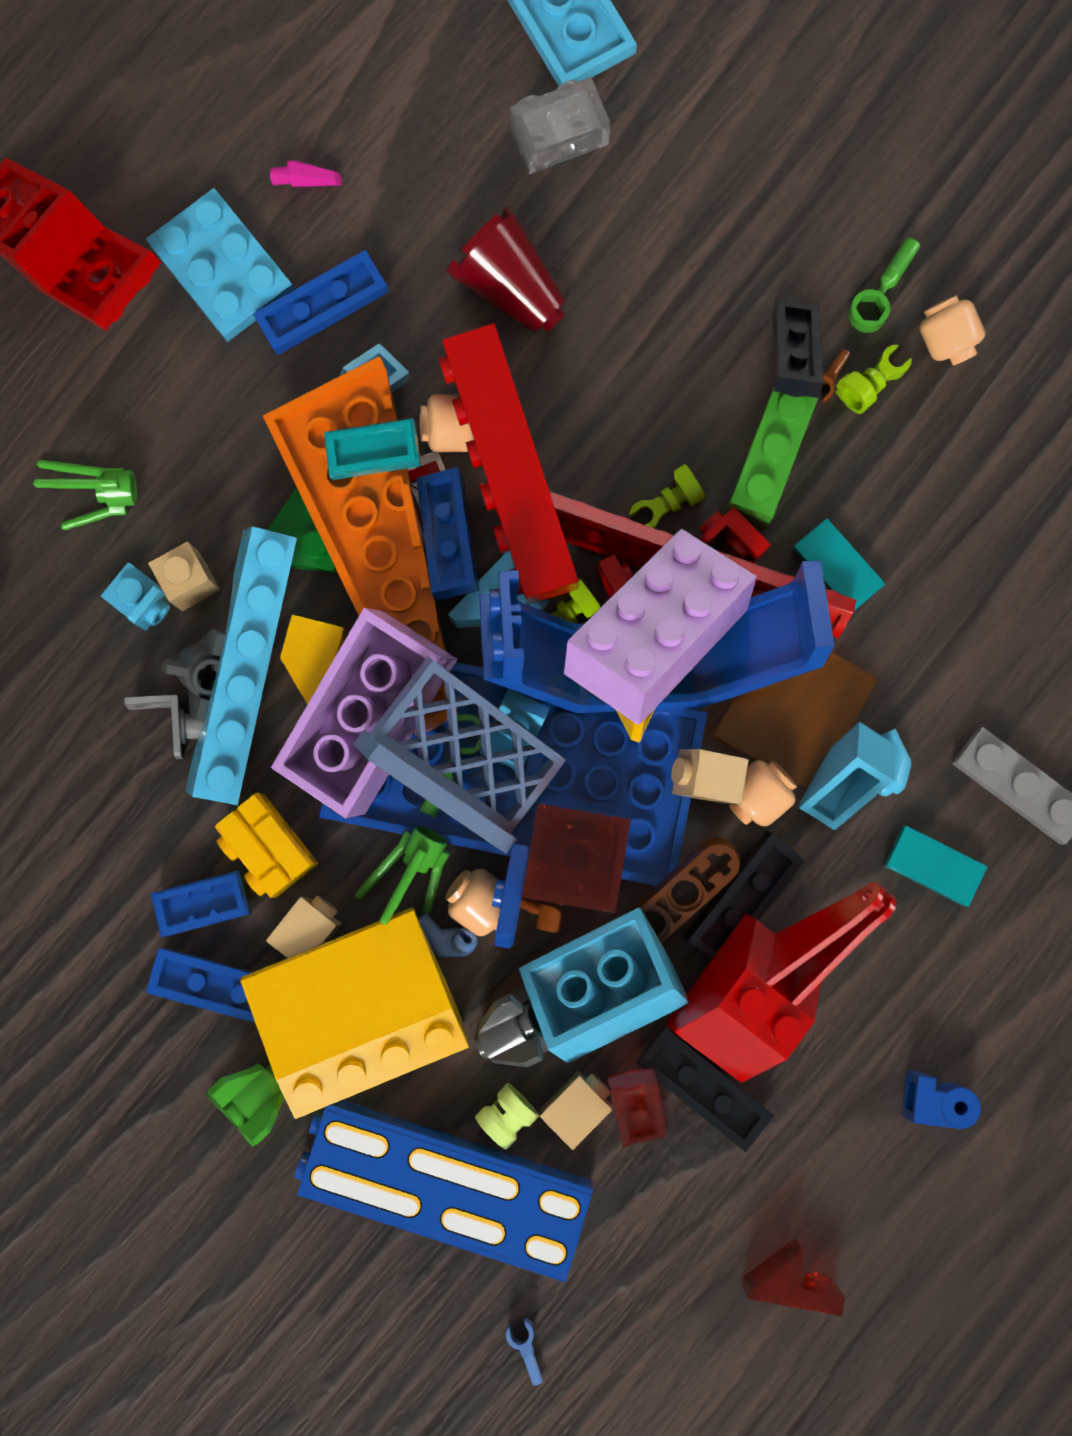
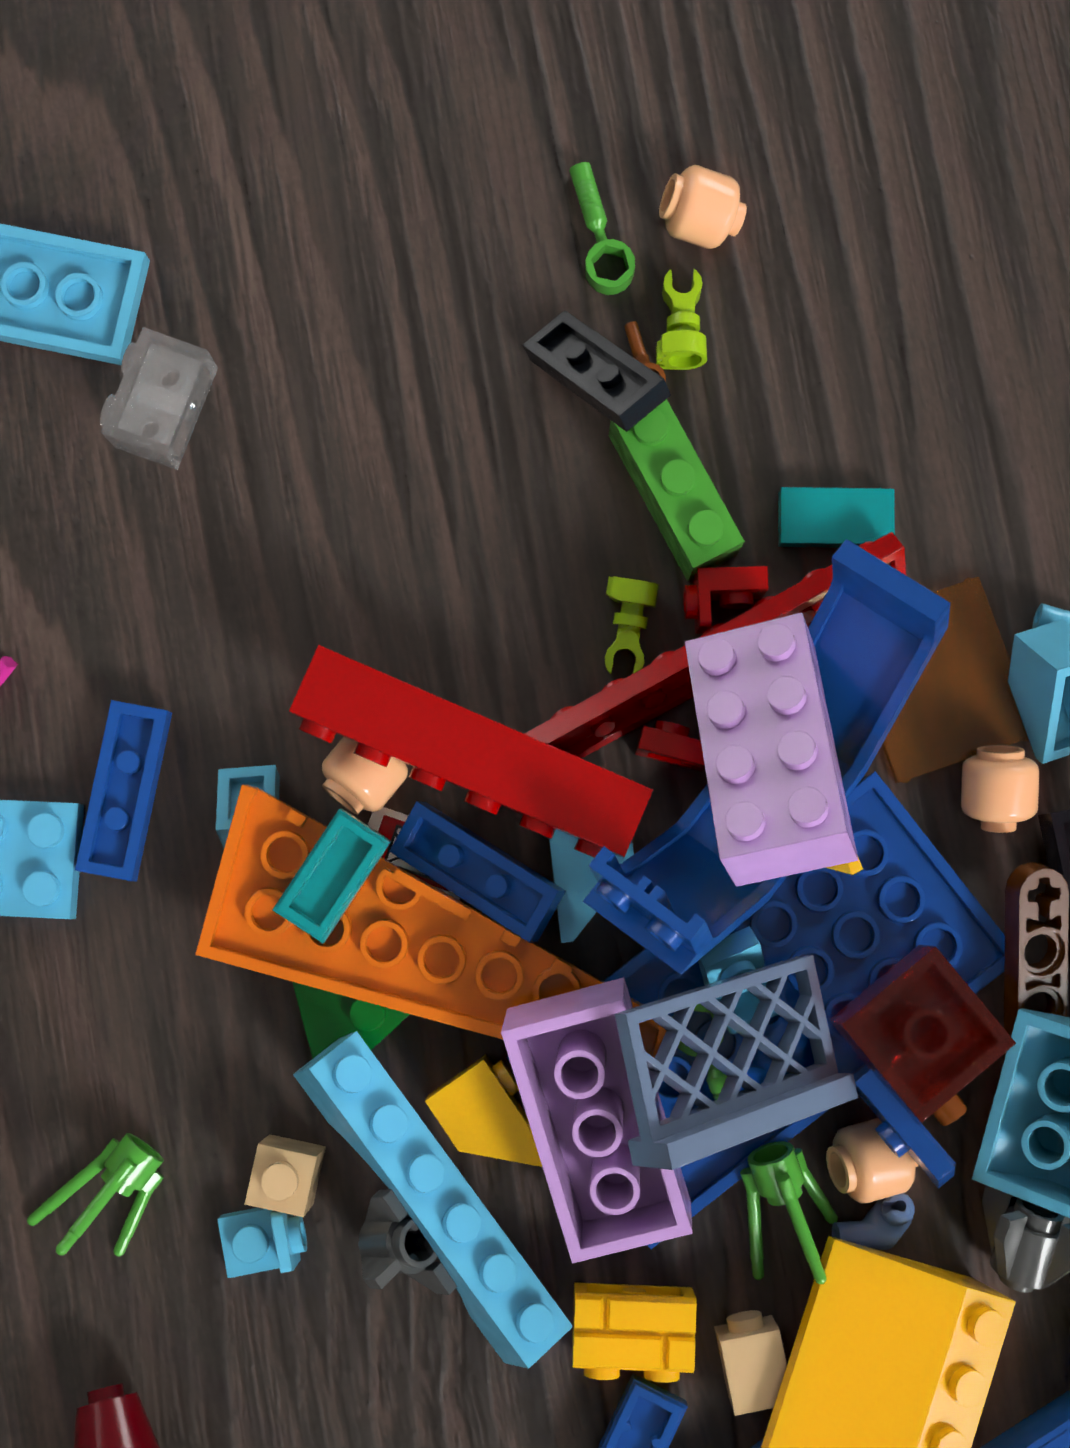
camera: 50 degrees left, 0 degrees up
(183, 724) = (435, 1307): light grey bracket -> none
(509, 274) = (269, 580): dark red cone -> none
(581, 602) = (655, 817): lime piece -> none
(709, 776) = (946, 826): tan brick -> none

